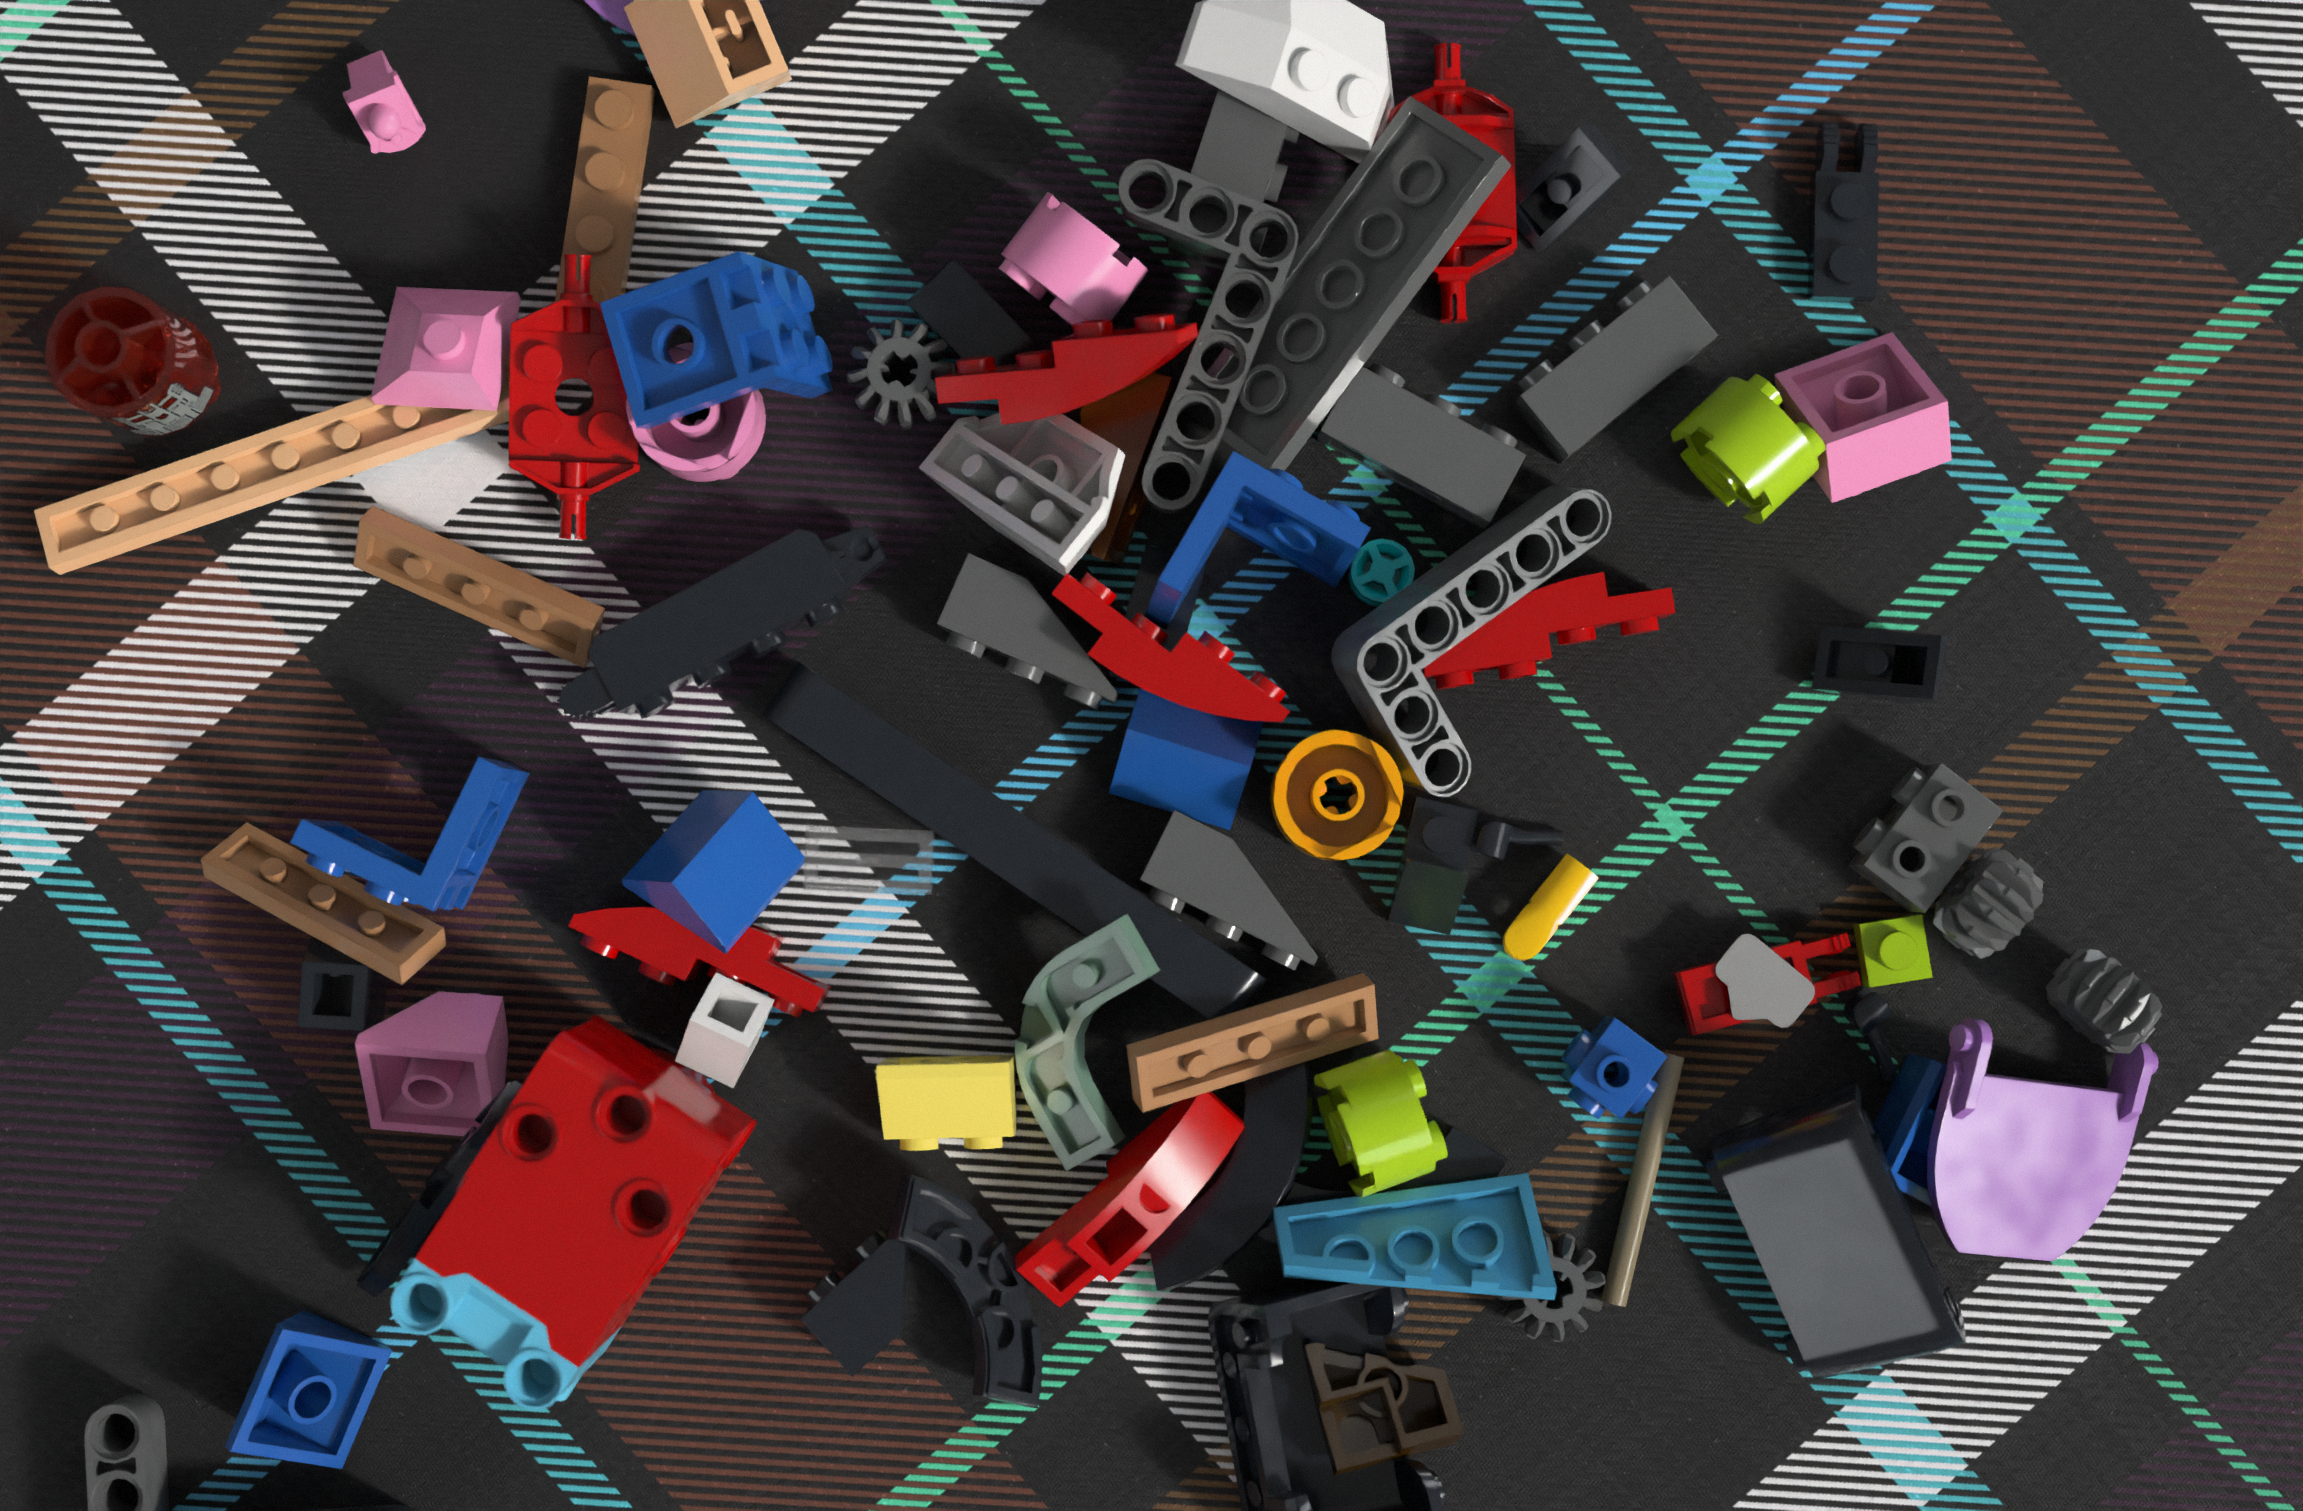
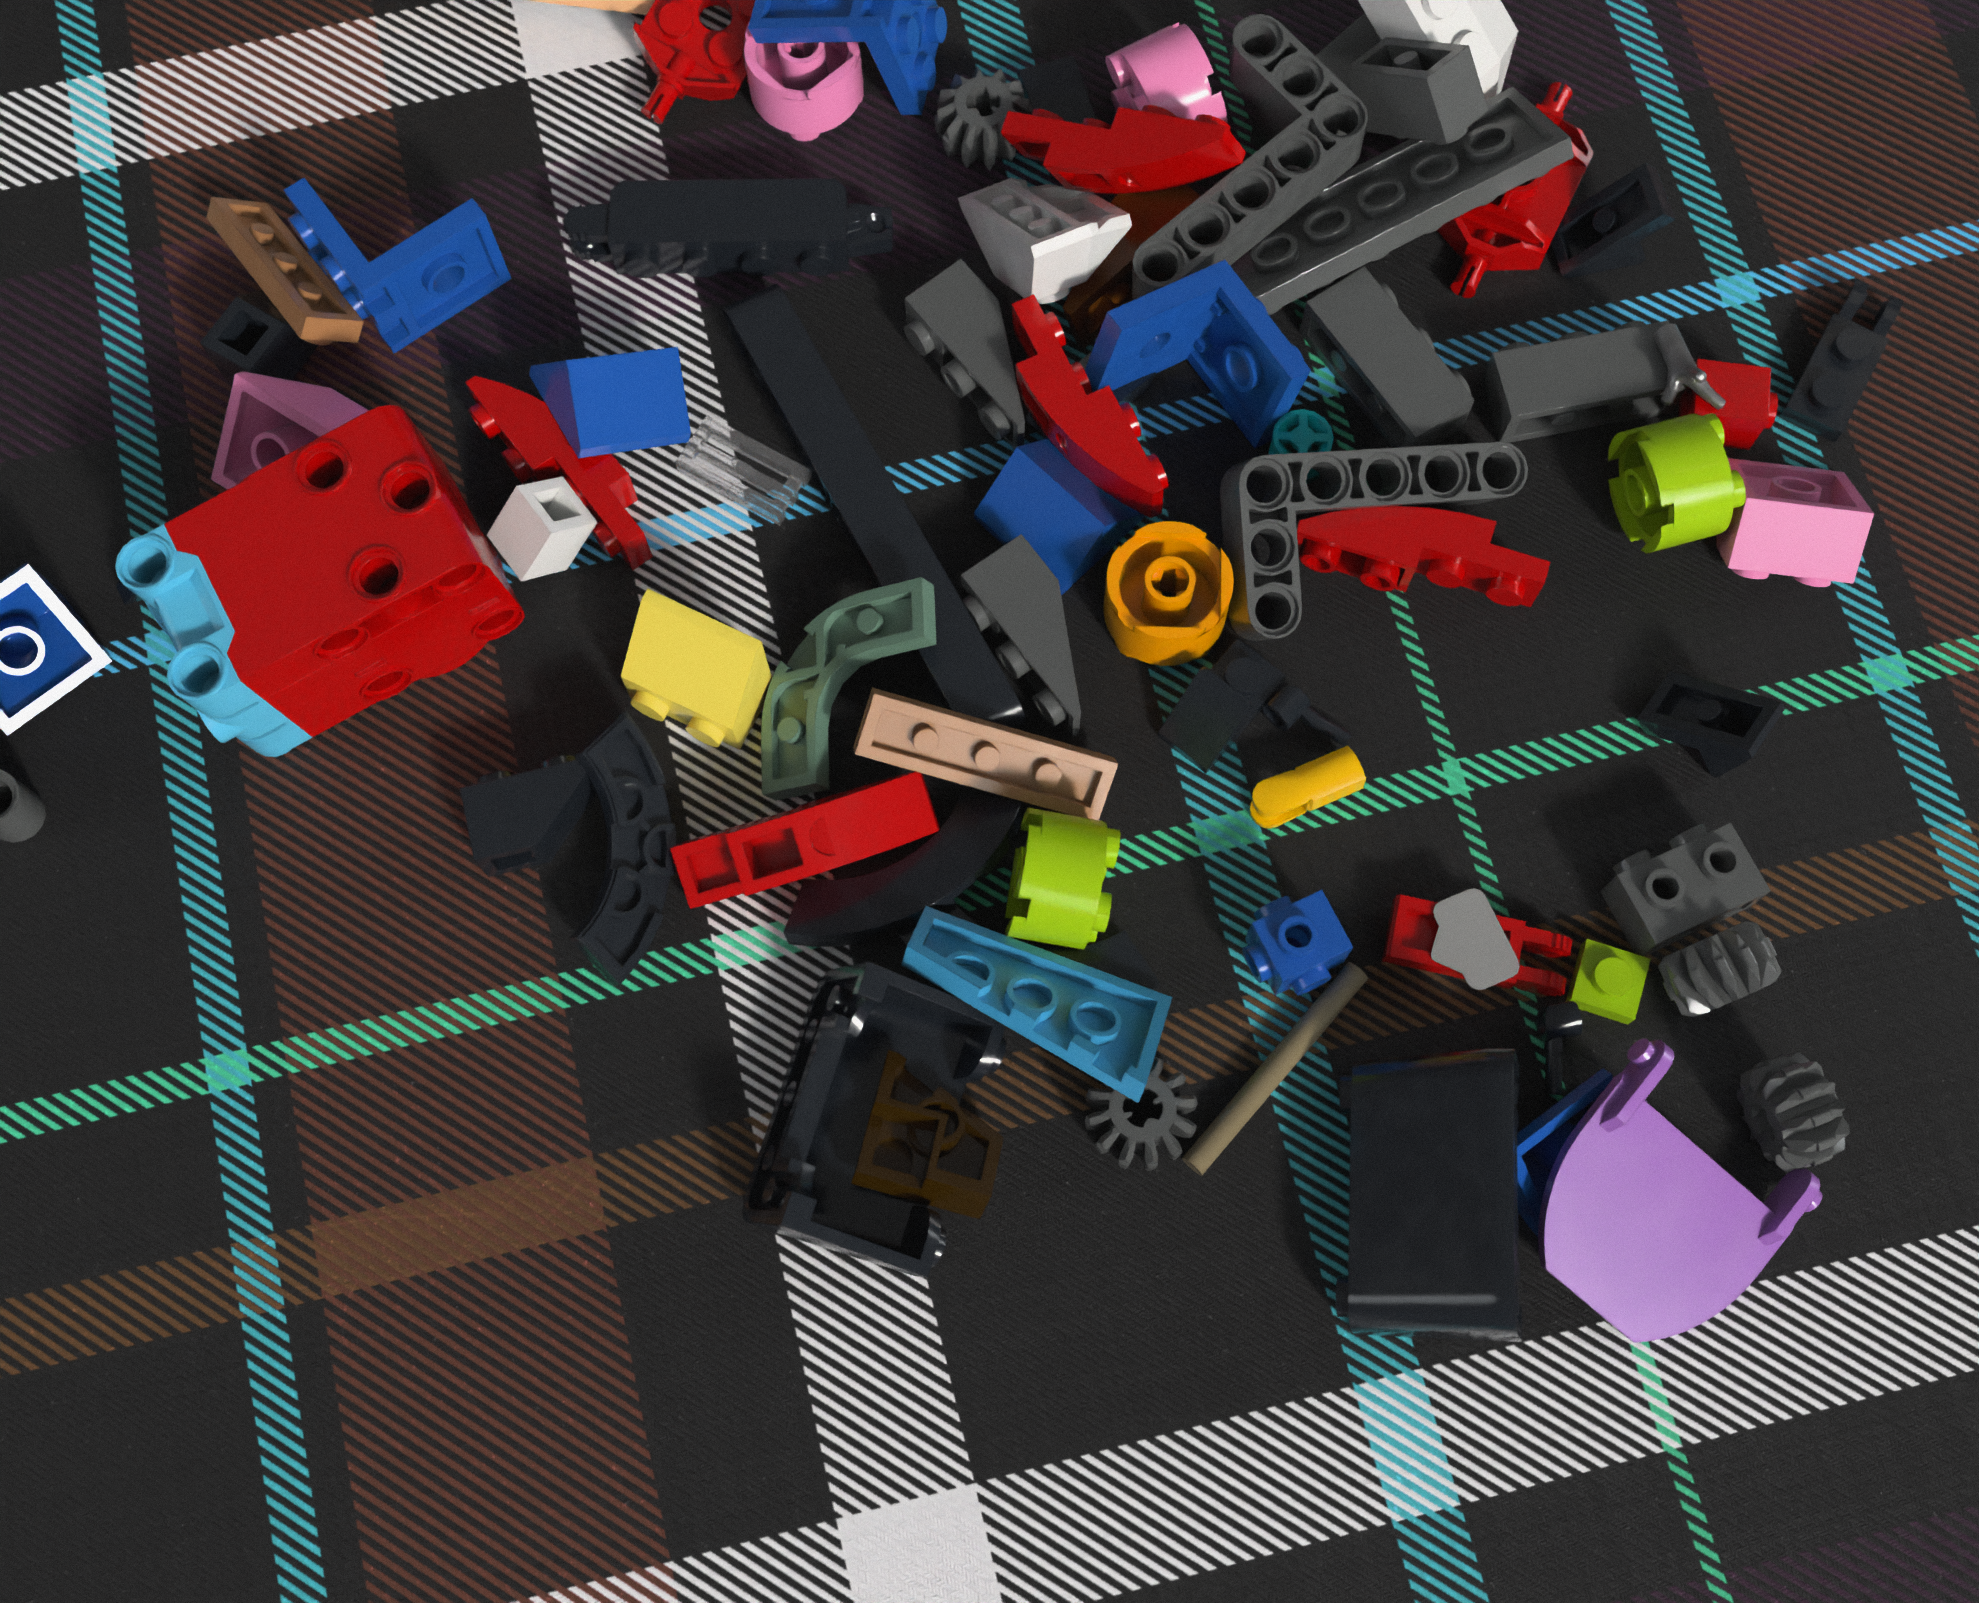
camera: 30 degrees right, 15 degrees down
(477, 586) = (553, 111): medium nougat plate -> none
(1324, 160) = (1418, 89): none -> dark grey brick
(1707, 327) = (1683, 368): none -> flat silver bar
(1758, 325) = (1747, 396): none -> red brick

